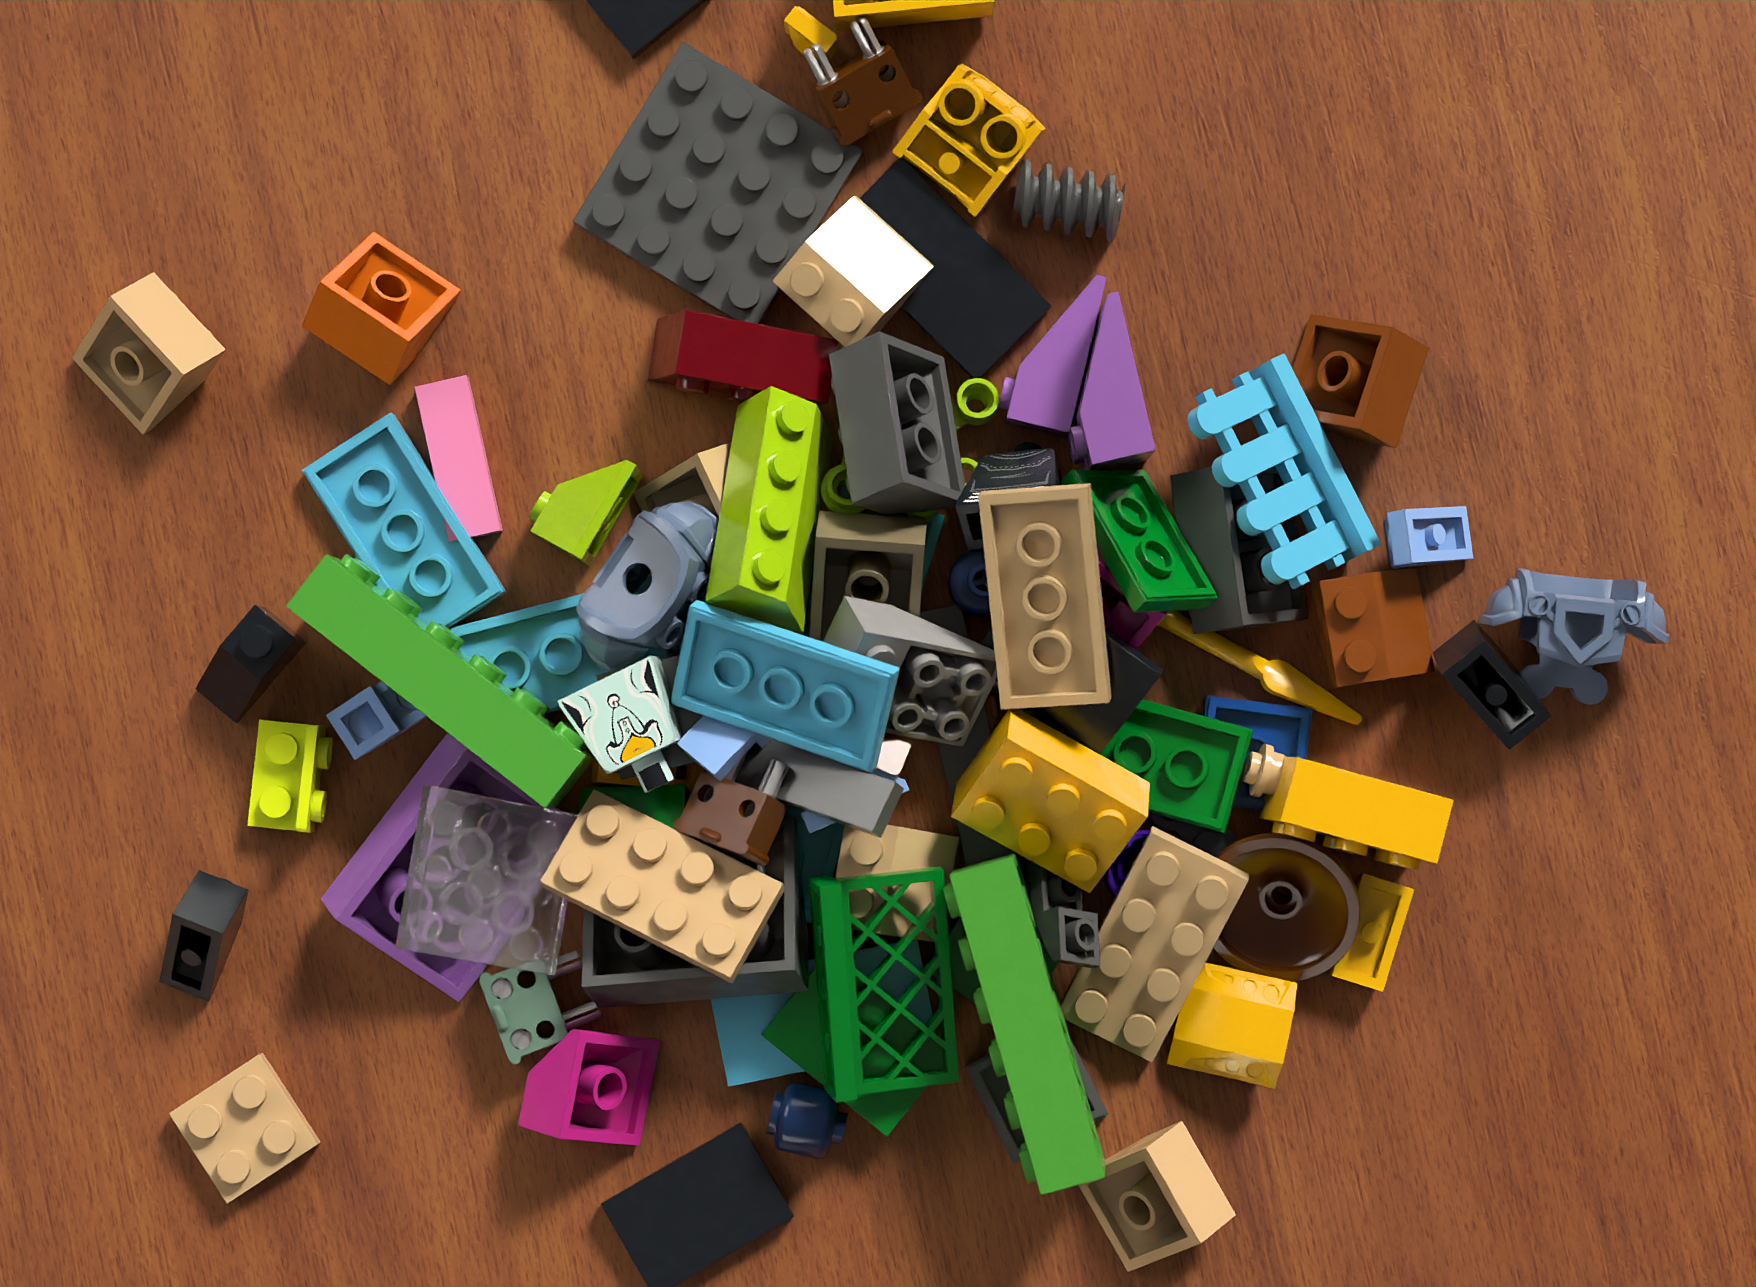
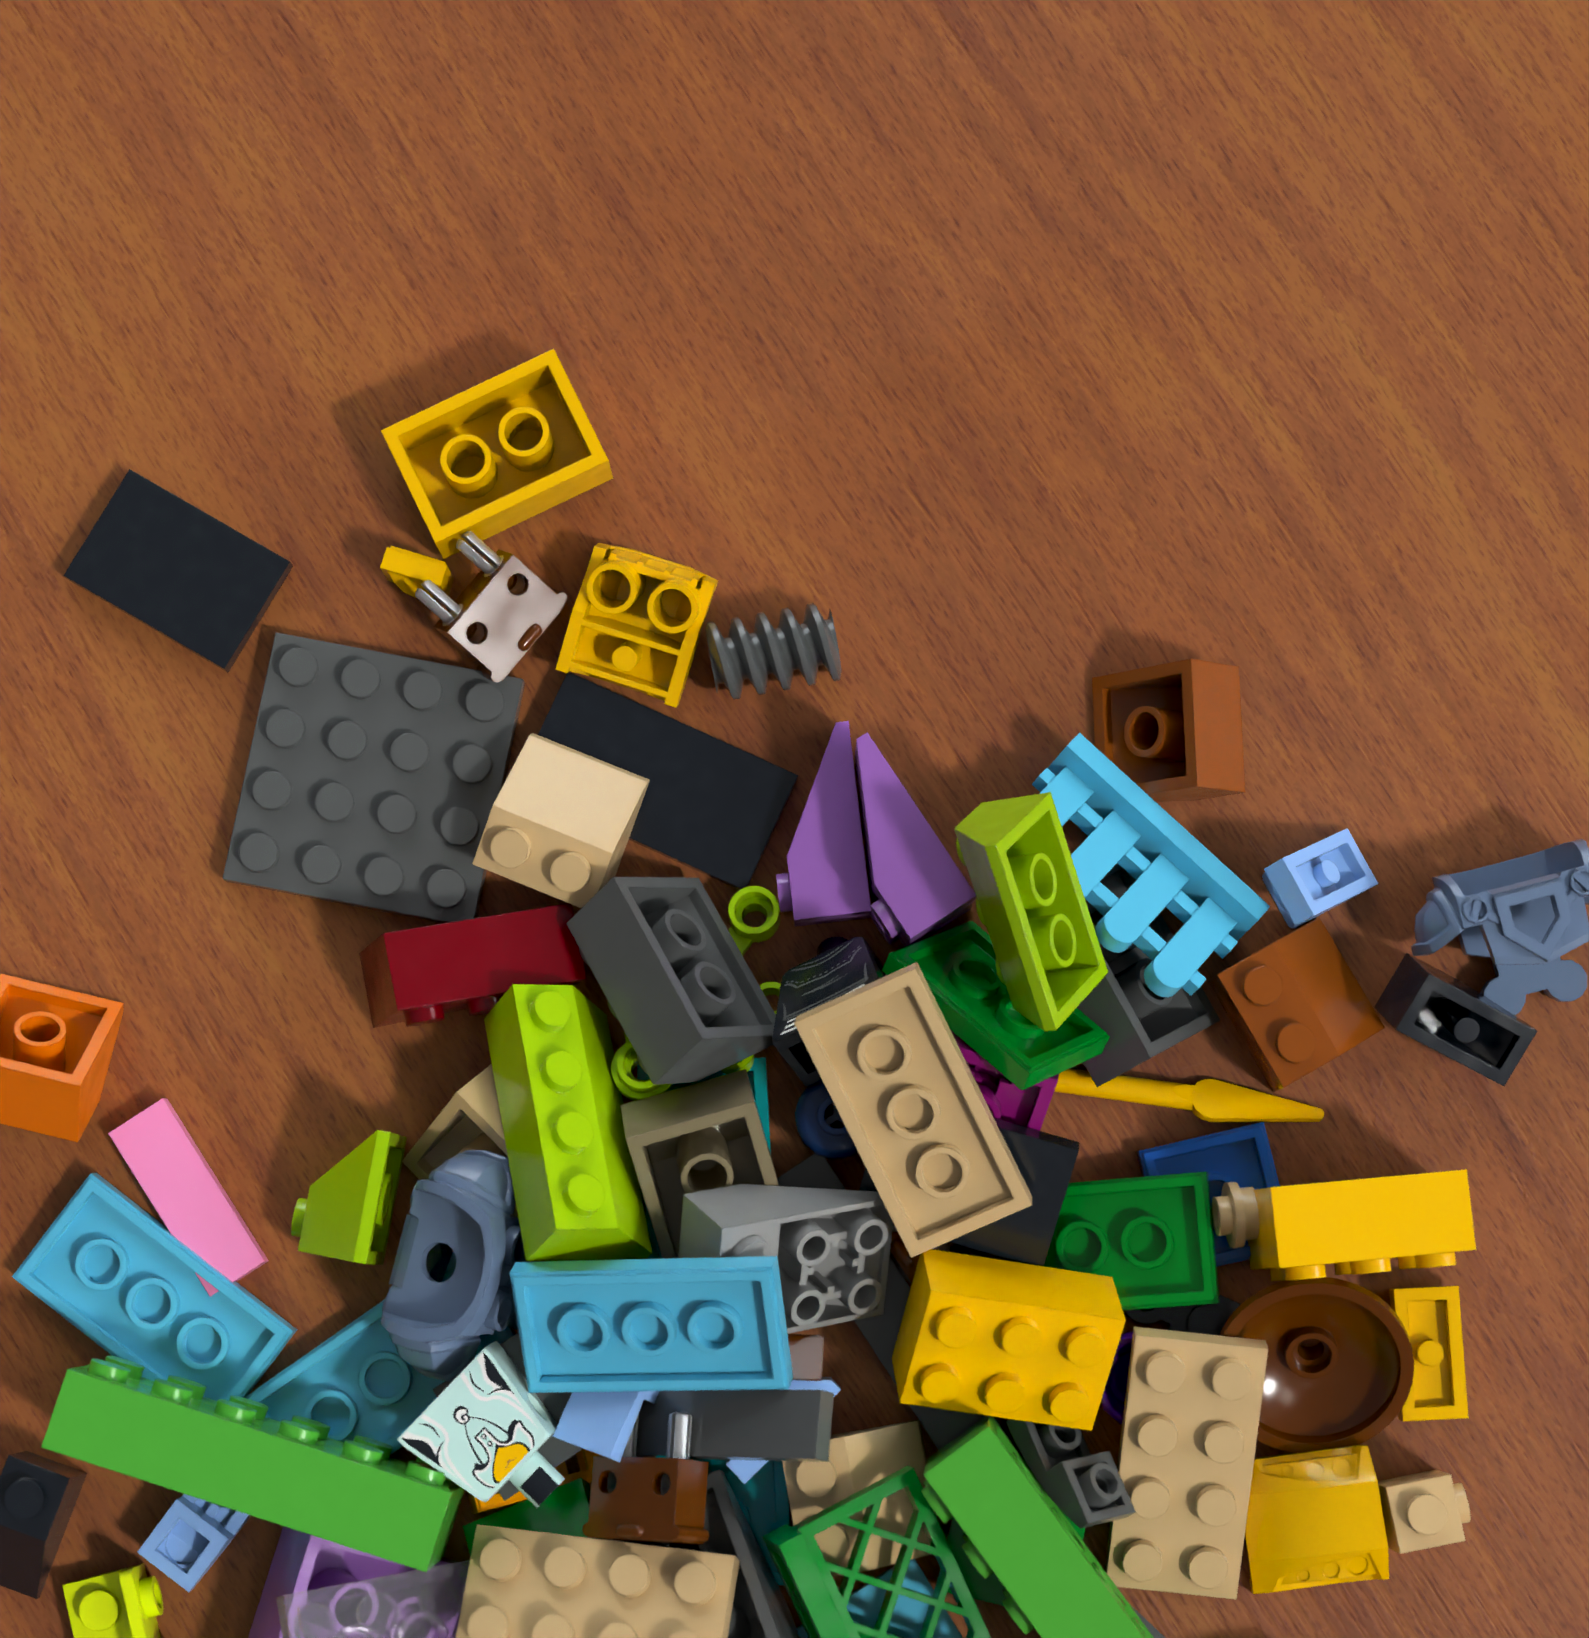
camera: 15 degrees left, 5 degrees down
(1195, 473) = (1031, 906): none -> lime slope
(1320, 1048) = (1423, 1511): none -> tan brick

